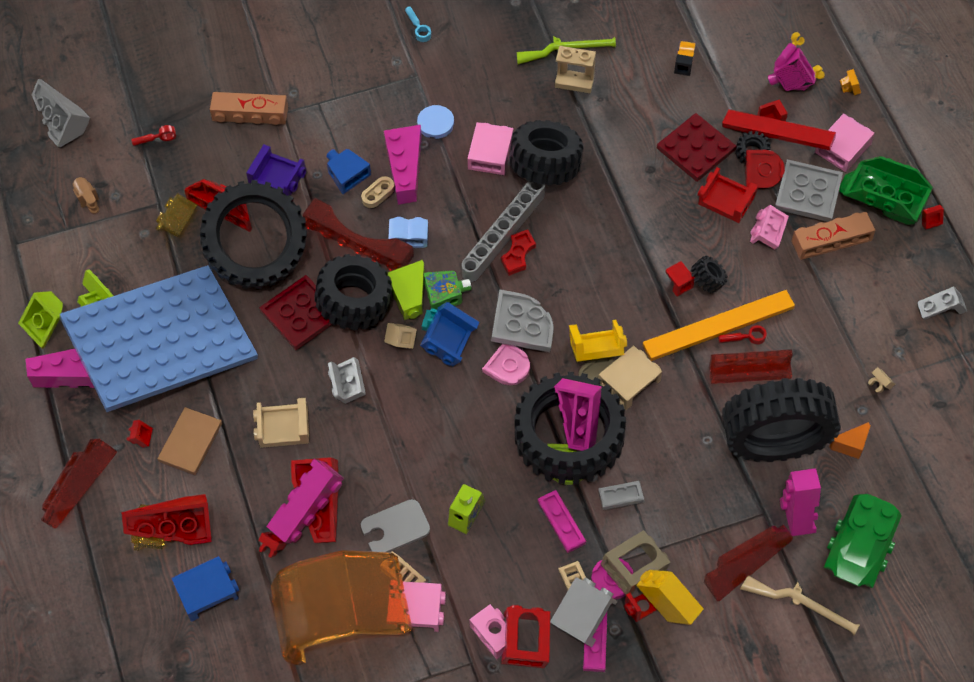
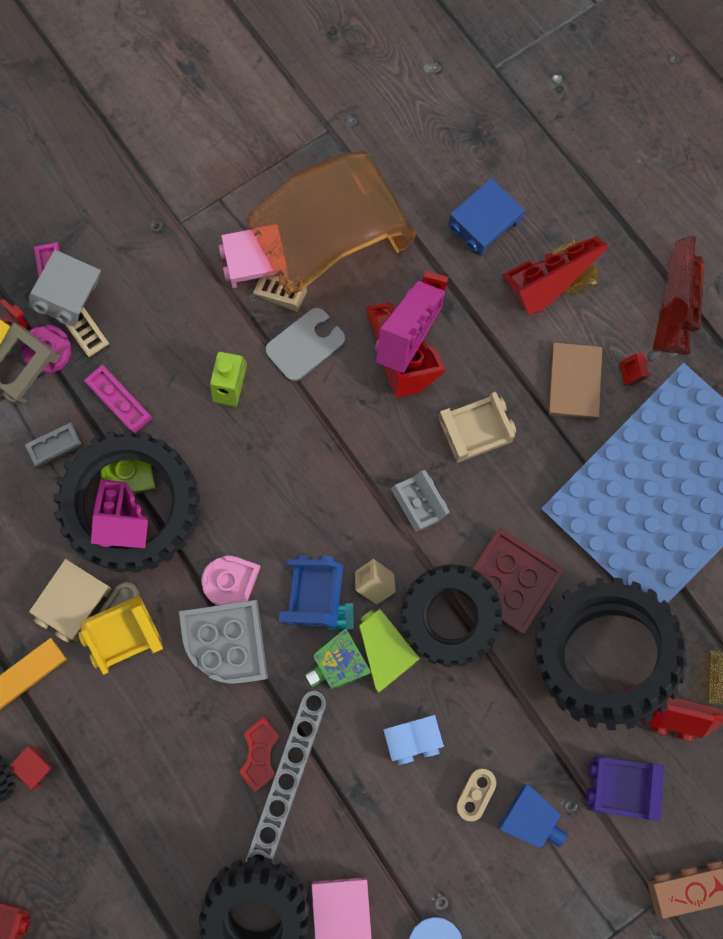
camera: 160 degrees right, 15 degrees up
(389, 252) = (532, 727): clear red arch -> none
(403, 153) = (459, 863): dark pink wedge -> none
(483, 622) = (155, 241): bright pink brick -> none
(520, 657) = (127, 227): red panel -> none

